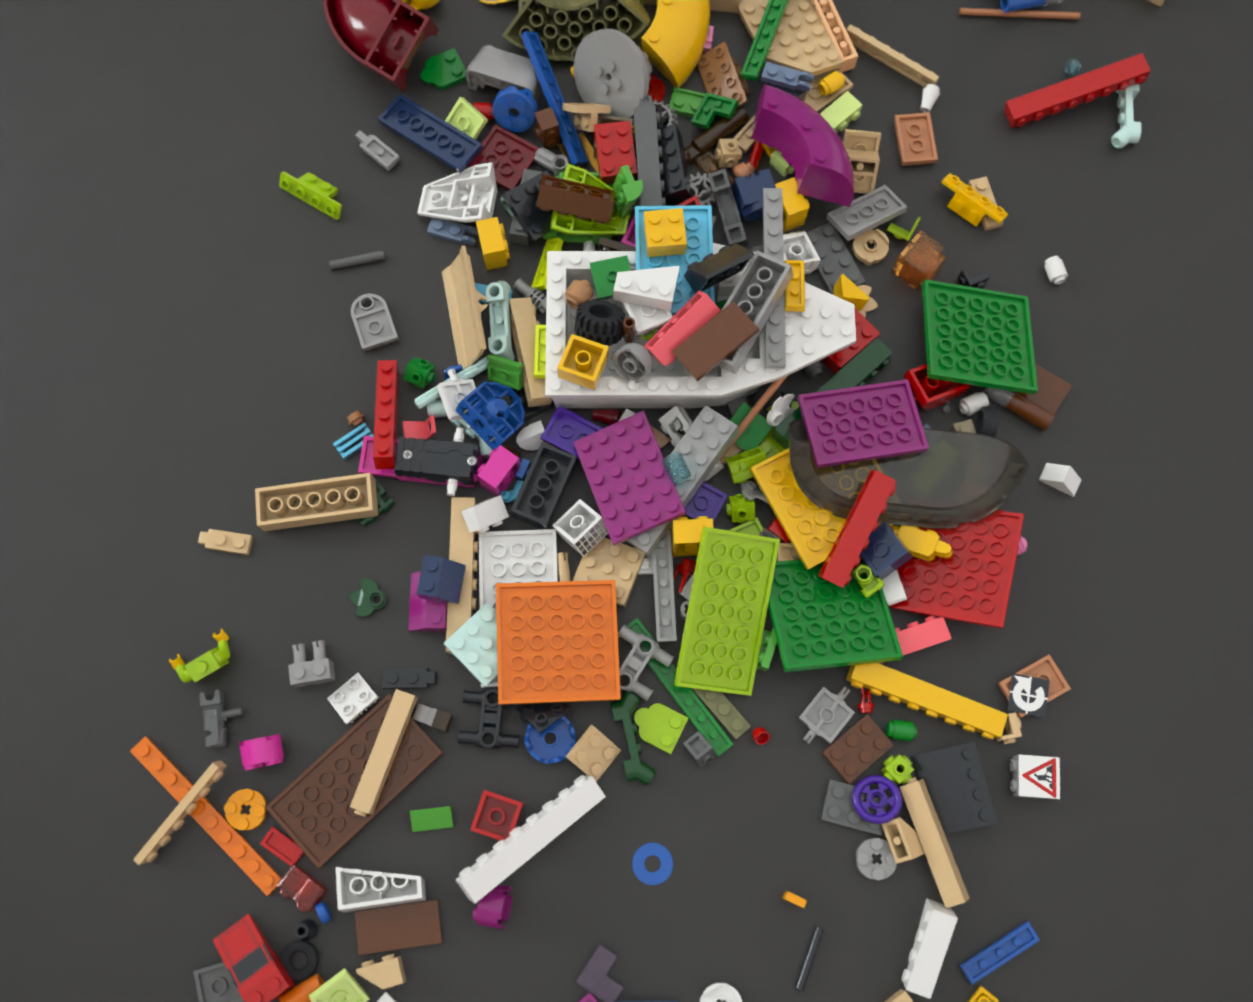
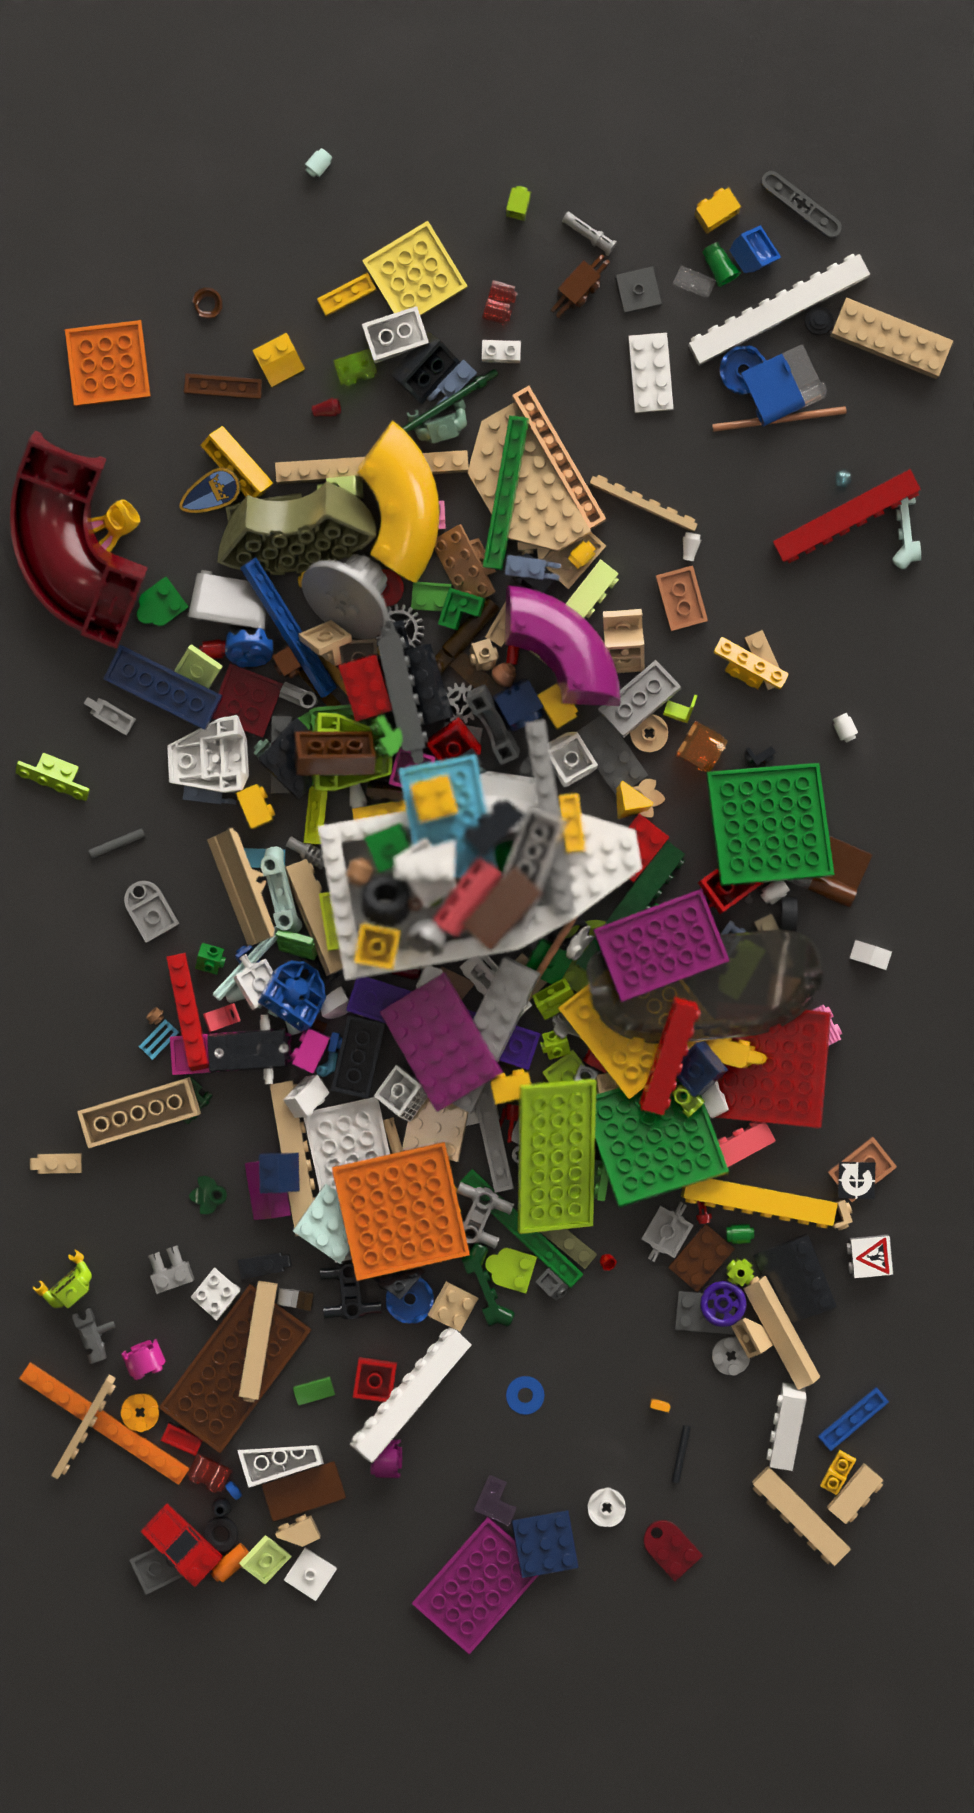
camera: 15 degrees left, 15 degrees up
(676, 468) = (485, 1030): clear light blue piece -> none

